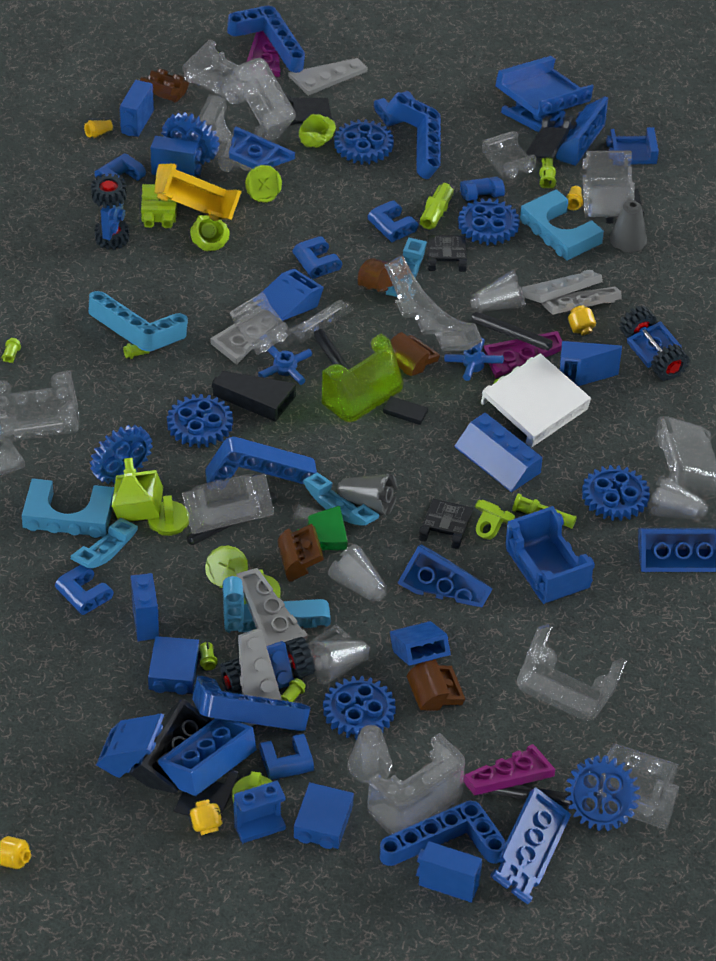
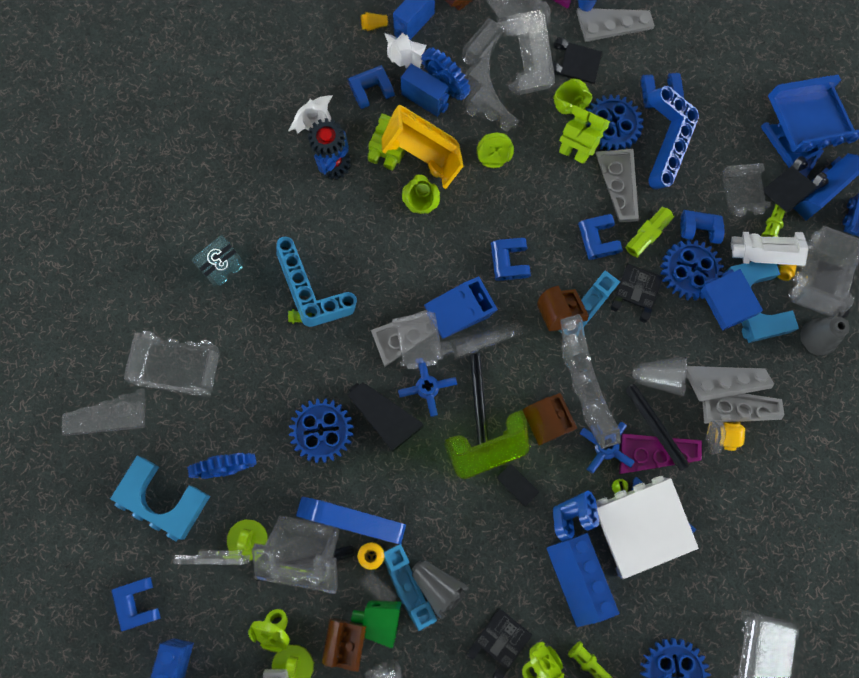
camera: 20 degrees right, 30 degrees up
(12, 346) = (188, 276): lime pin -> none
(38, 325) = (218, 261): none -> clear light blue slope
(75, 204) = (311, 113): none -> white hair
(108, 546) = (164, 565): dark azure slope -> none
(137, 494) = (223, 512): lime piece -> none
(138, 136) = (404, 51): none -> white hair
(151, 521) = (214, 557): none -> clear wing
(257, 151) = (501, 110): blue wing -> none
(293, 489) = (363, 554): none -> yellow head
(338, 155) = (580, 137): none -> lime hips
(392, 179) = (620, 179): none -> light grey wing
(465, 401) = (582, 505): none -> blue connector
(532, 223) = (731, 299): none -> blue brick
(539, 186) = (770, 249): none -> white hips
(567, 322) = (715, 437): none -> clear tile
(589, 361) = (701, 497): blue slope -> none
(654, 343) = (790, 496): plate -> none

